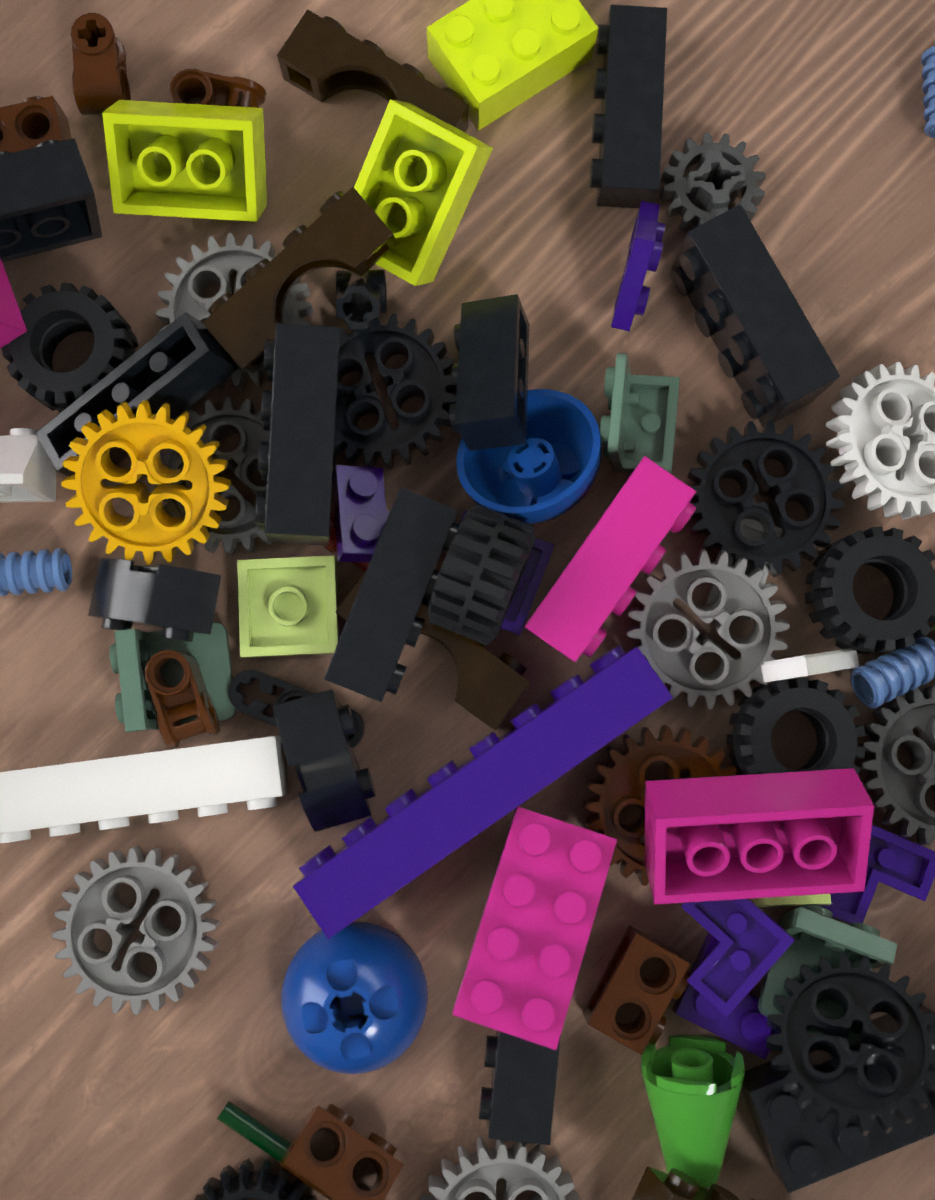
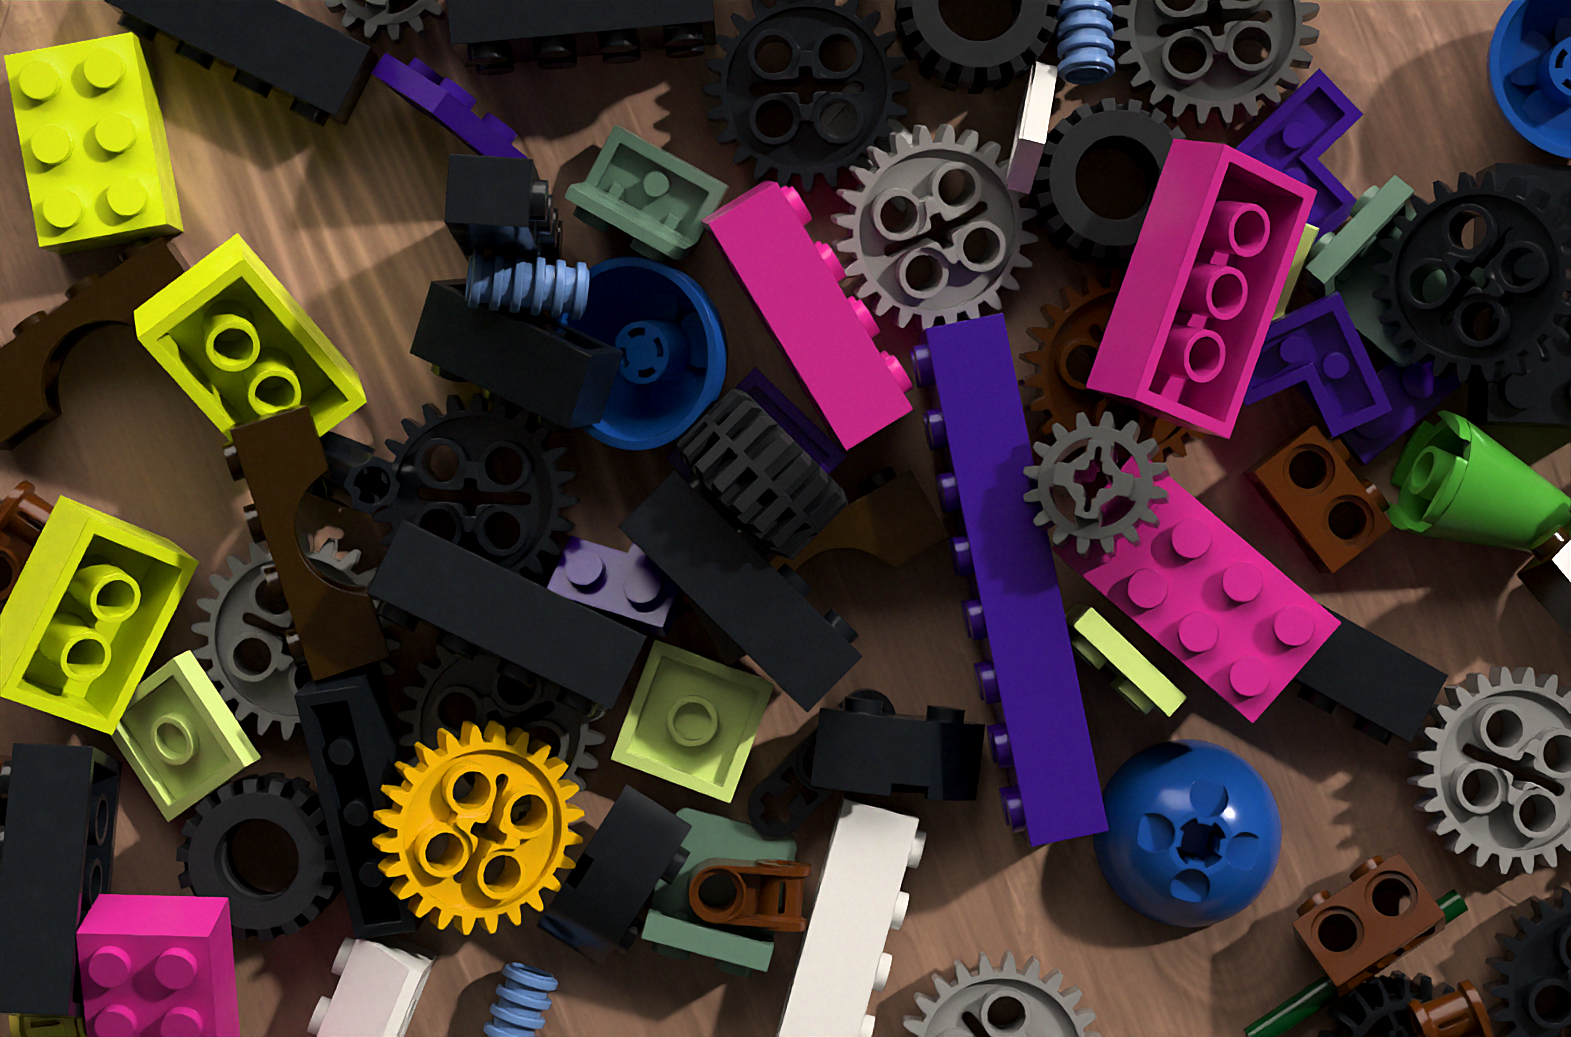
camera: 60 degrees left, 5 degrees up
(133, 260) = (181, 737): none -> yellowish green plate
(450, 910) = (1136, 677): none -> yellowish green plate
(543, 354) = (527, 285): none -> medium blue piece
(583, 842) = (1125, 491): none -> dark grey gear
(586, 310) = (501, 208): none -> black brick

